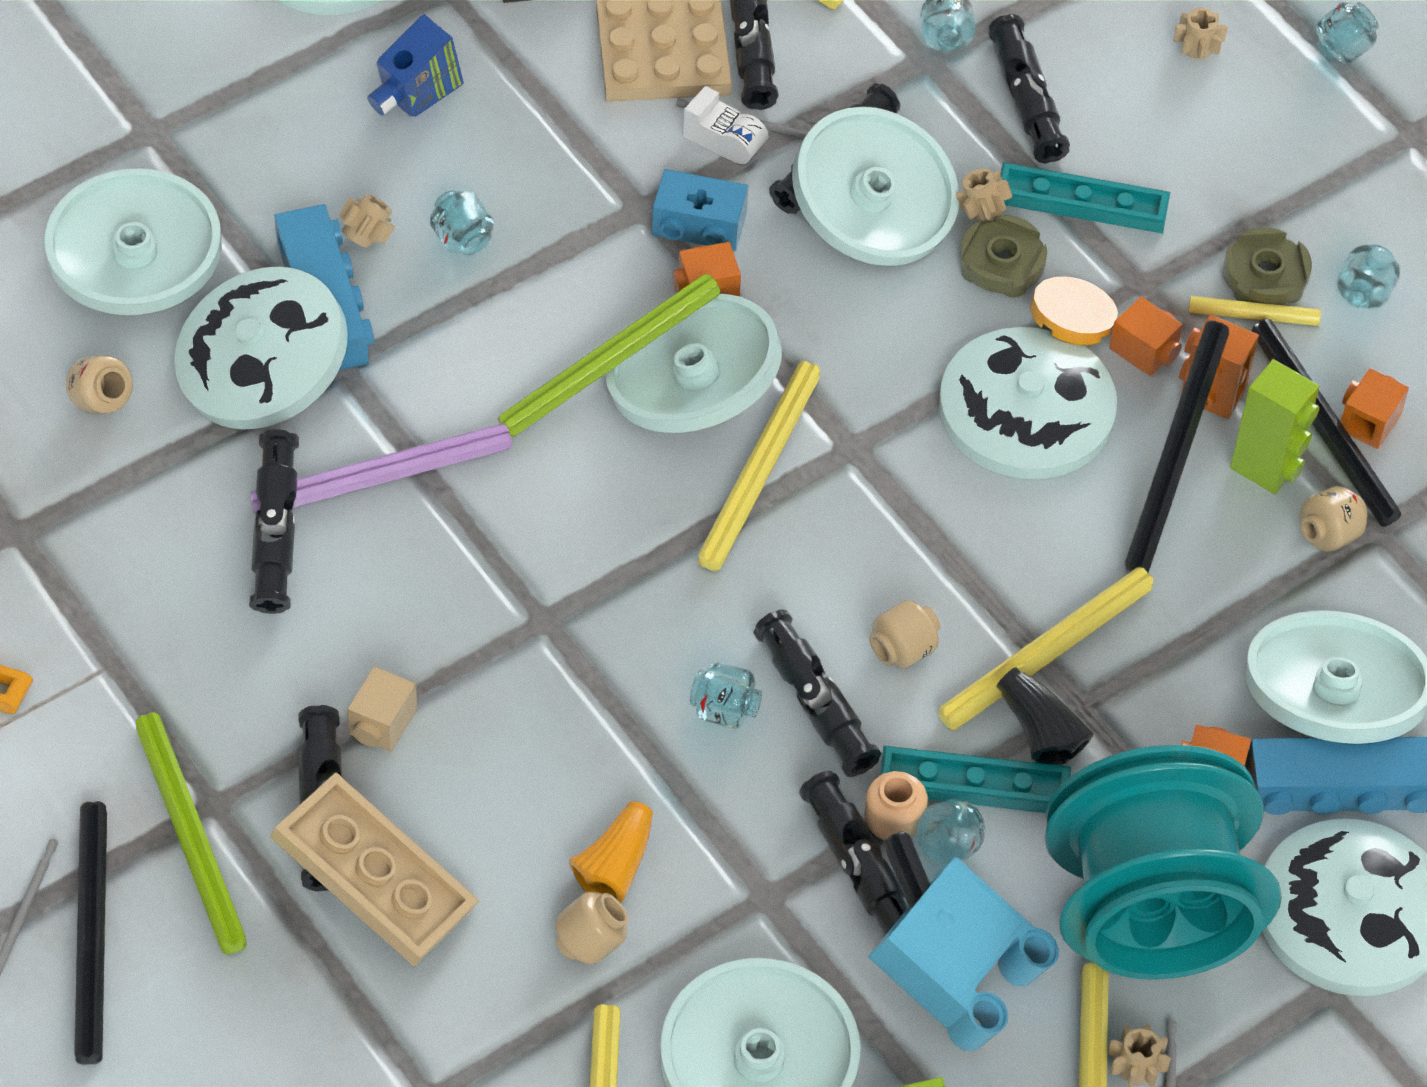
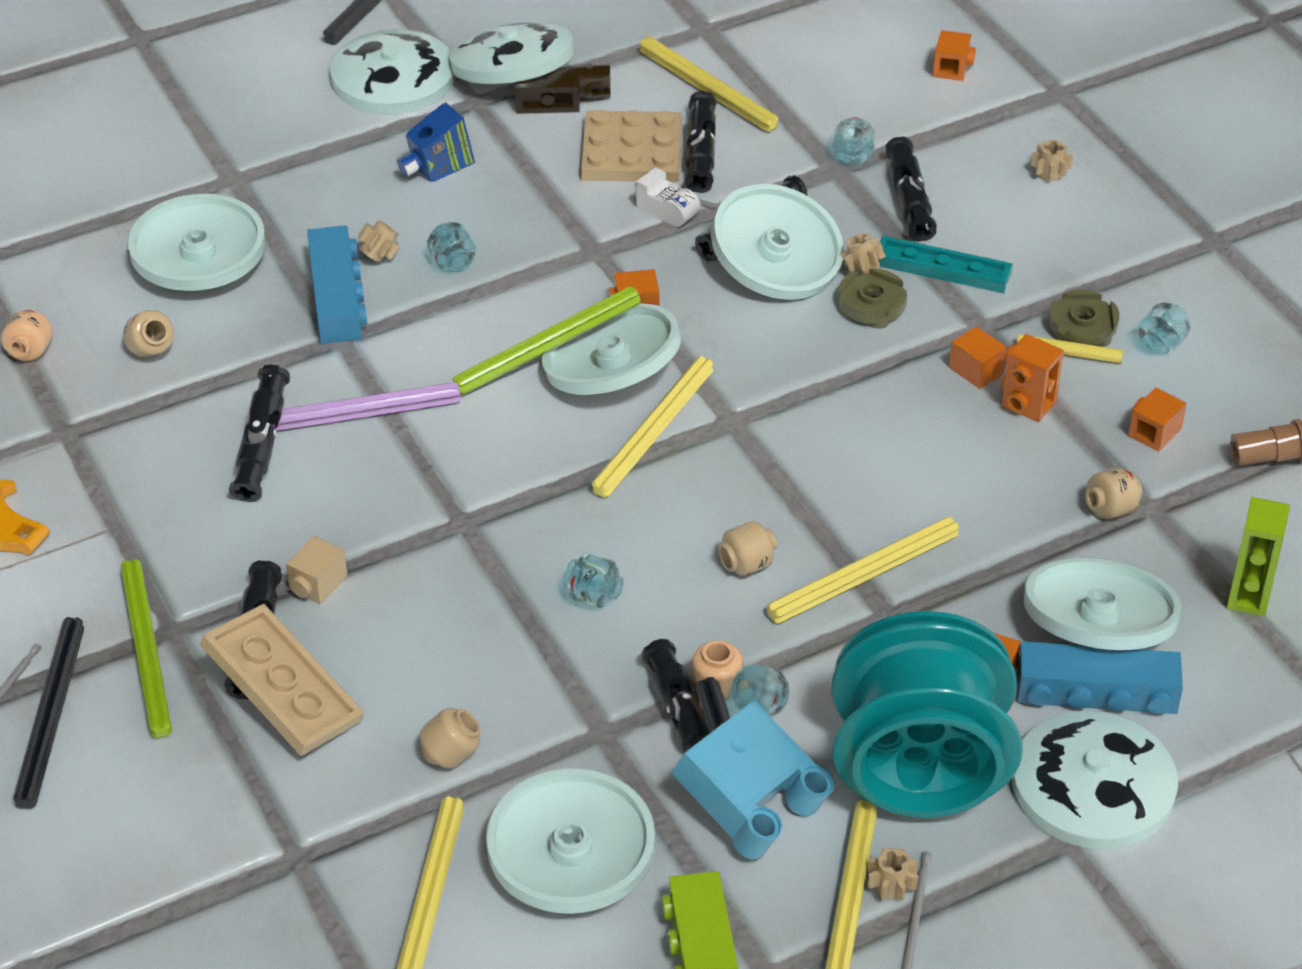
camera: 10 degrees right, 10 degrees down
(260, 348) = (277, 316): light aqua dish -> none
(616, 855) = (484, 687): light orange piece -> none
(699, 209) = (637, 248): dark azure brick -> none
(803, 669) = (669, 586): black piece -> none
(978, 778) = (793, 659): teal tile -> none
(1027, 403) = (876, 399): light aqua dish -> none
(1050, 726) = (845, 608): black piece -> none
(1073, 310) = (921, 336): tile -> none
(1177, 446) = (988, 427): black axle -> none
(1275, 427) = (1069, 418): lime brick -> none
(1333, 431) = (1118, 429): black axle -> none
(1346, 32) = (1167, 164): clear light blue head -> none

